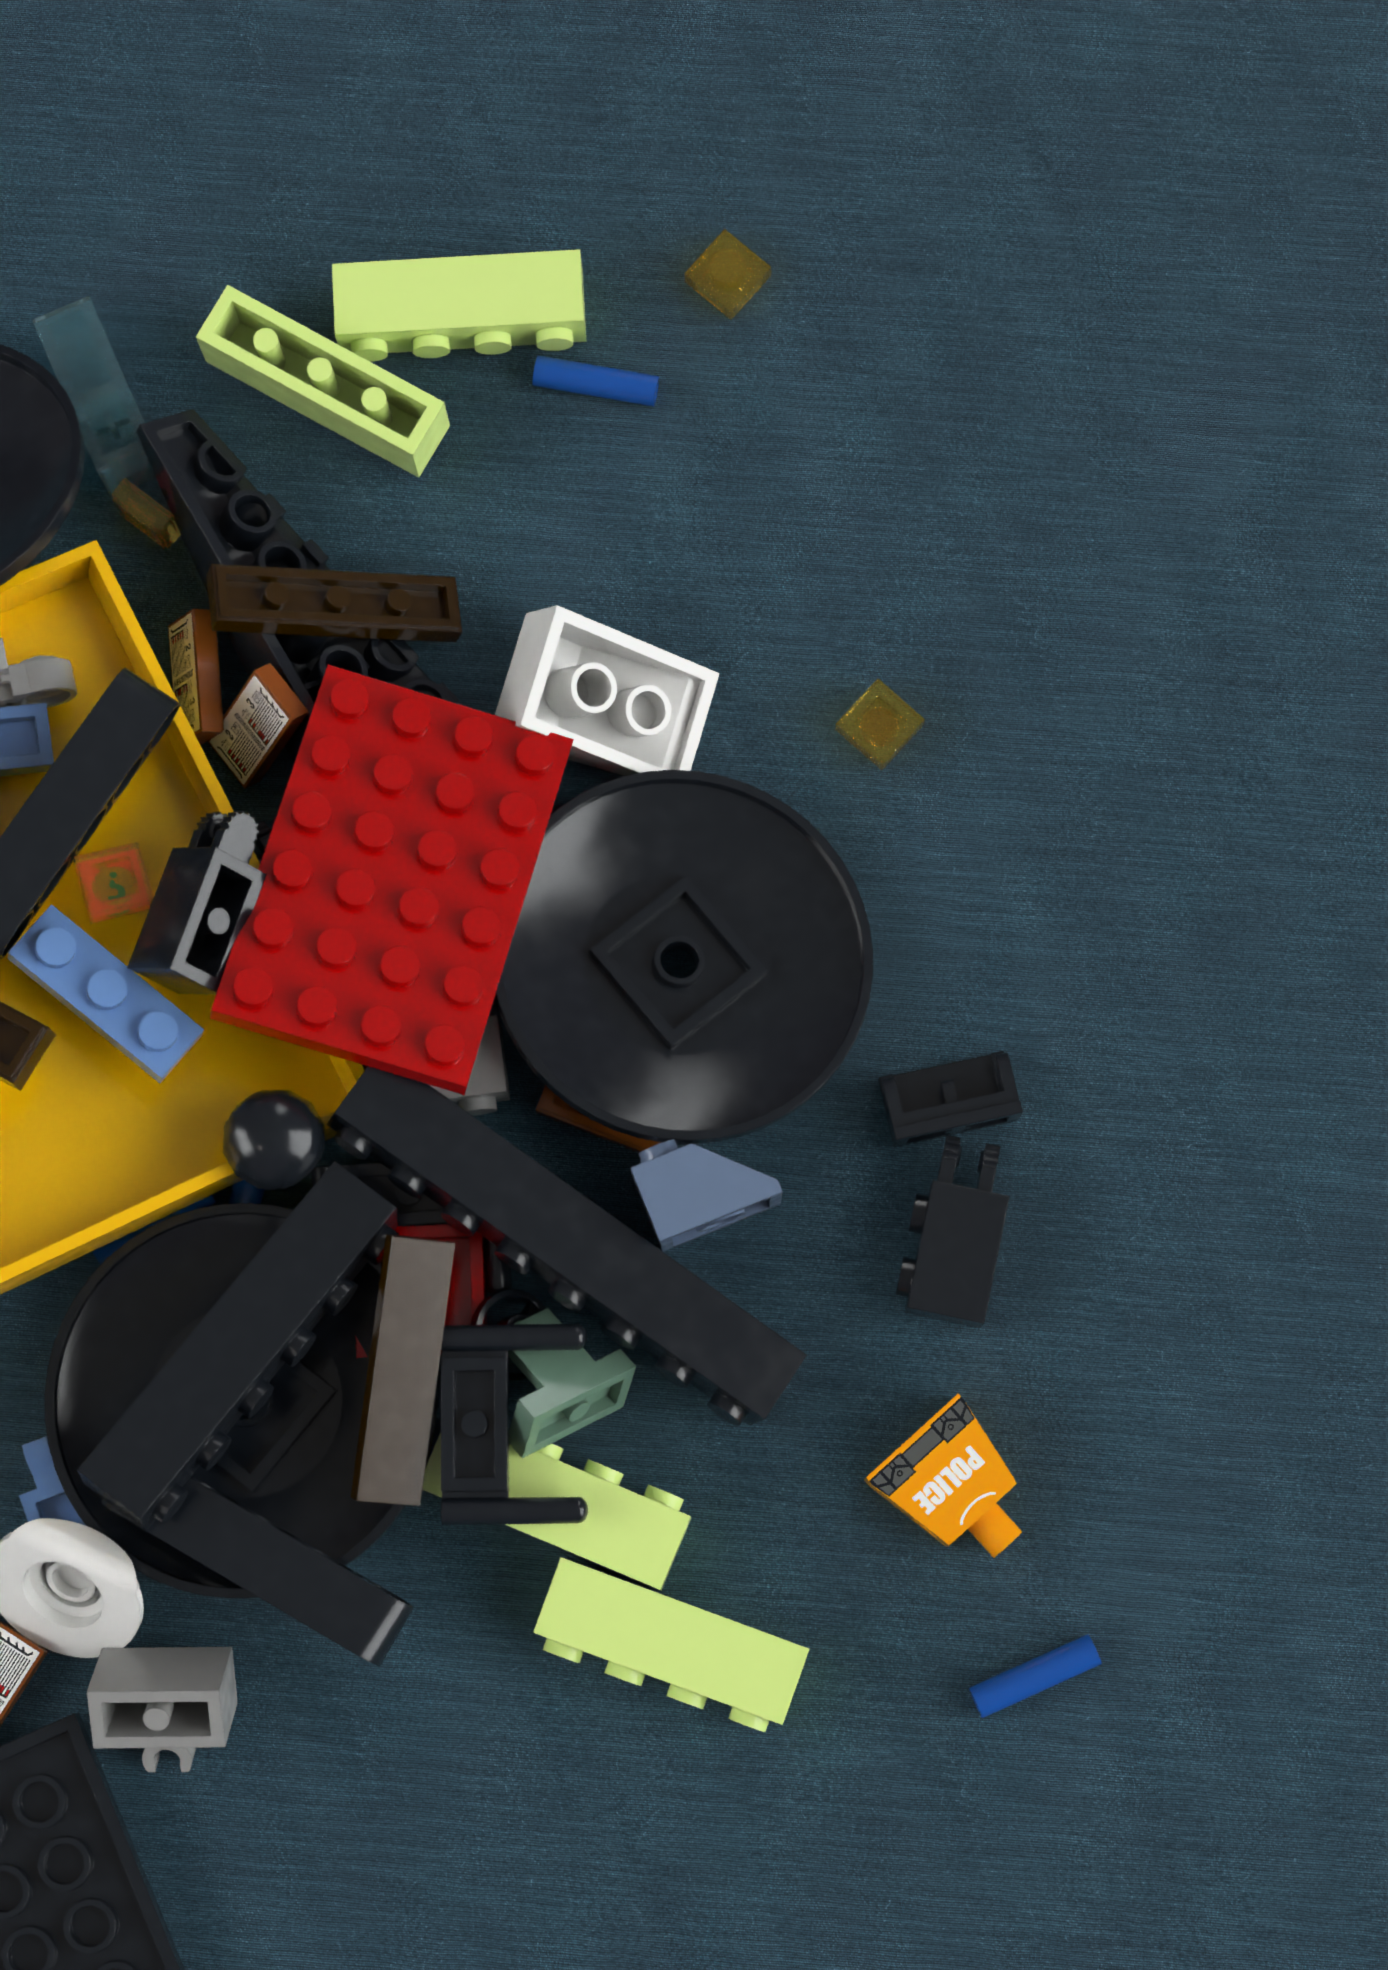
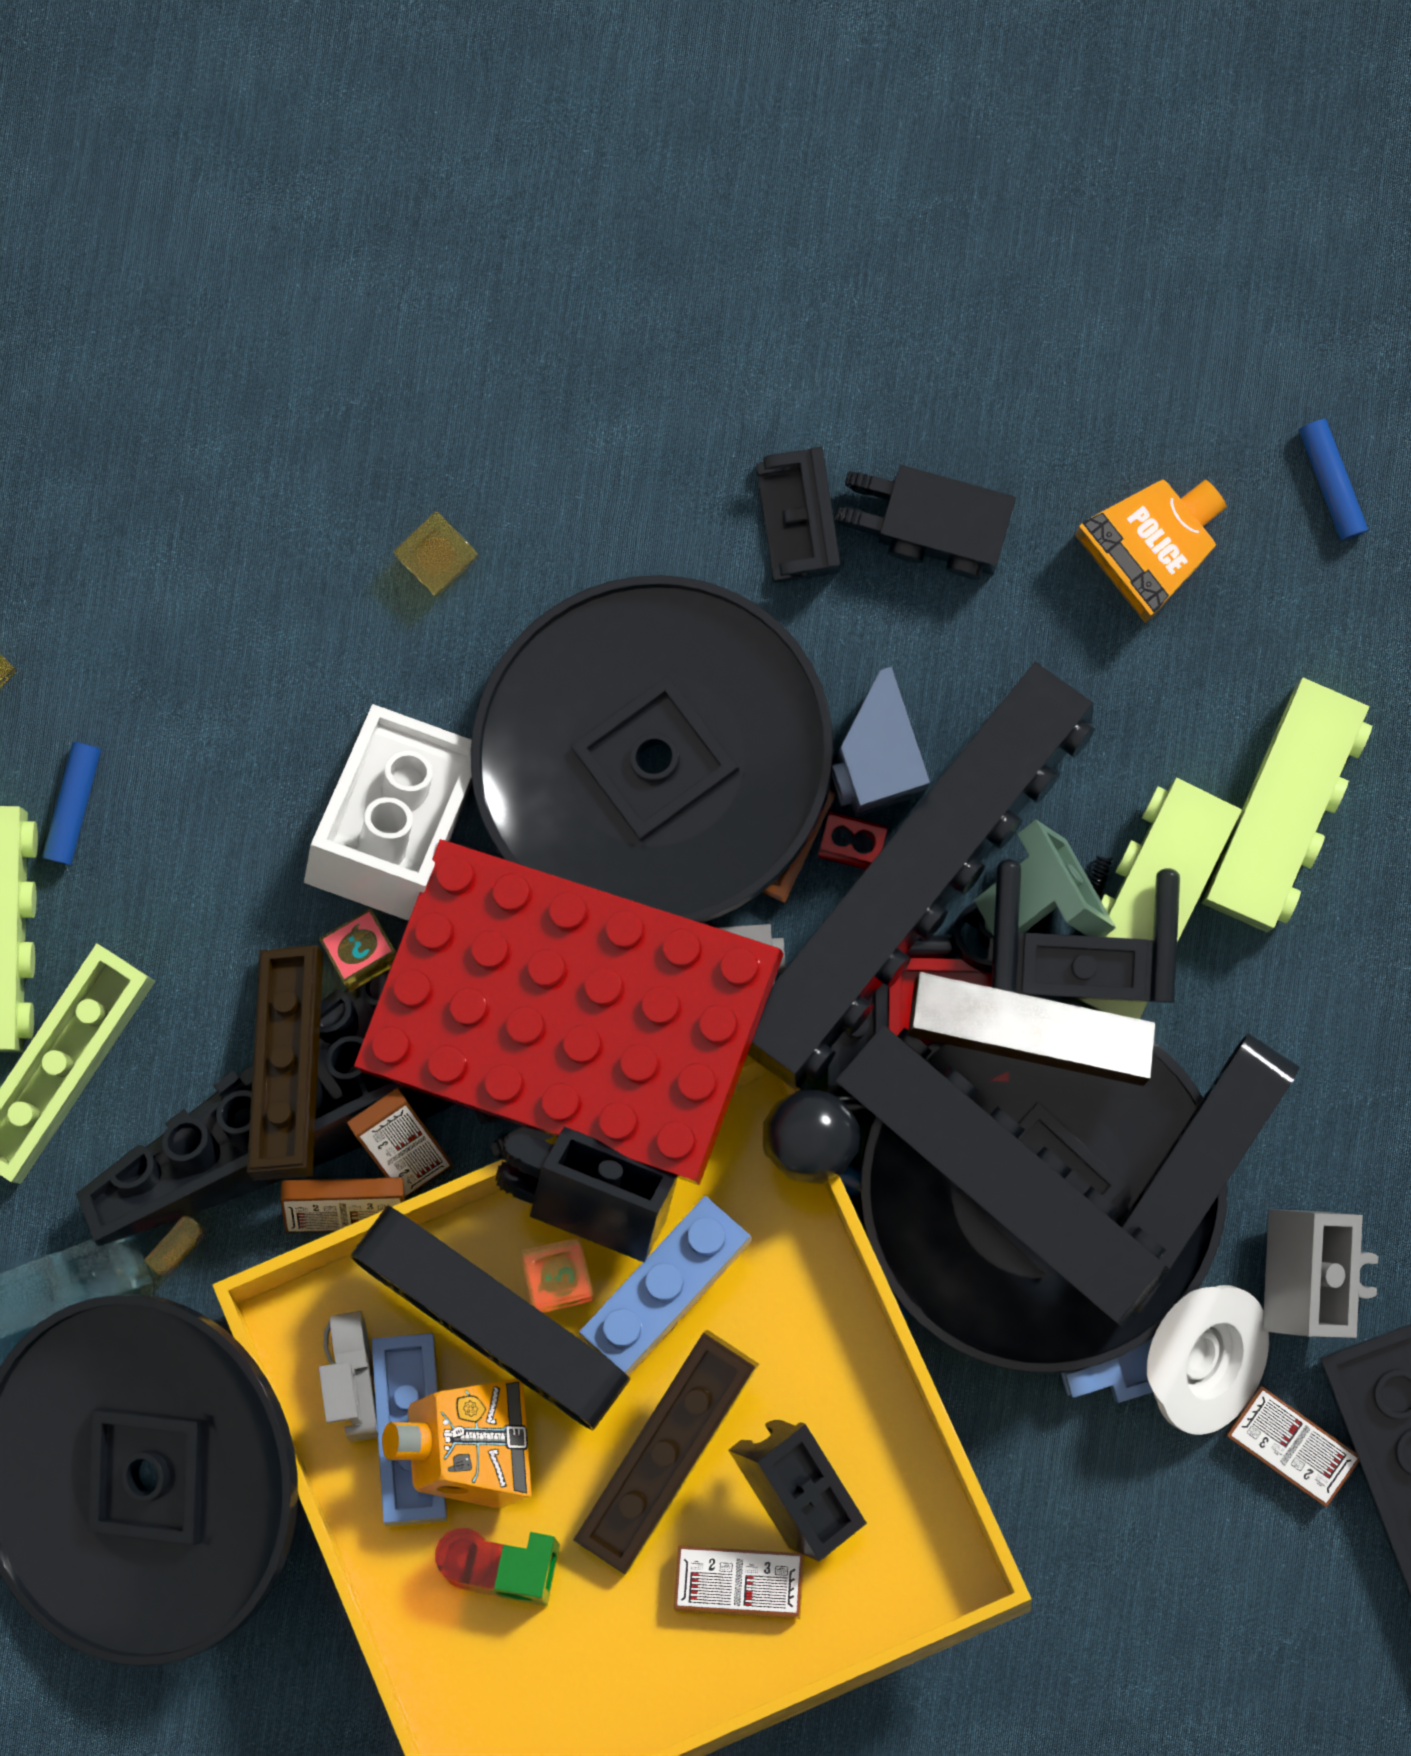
camera: 90 degrees left, 5 degrees up
(461, 674) = (359, 949): none -> tile
(583, 1442) = (1102, 877): none -> black leg
(622, 1177) = (847, 854): none -> red piece

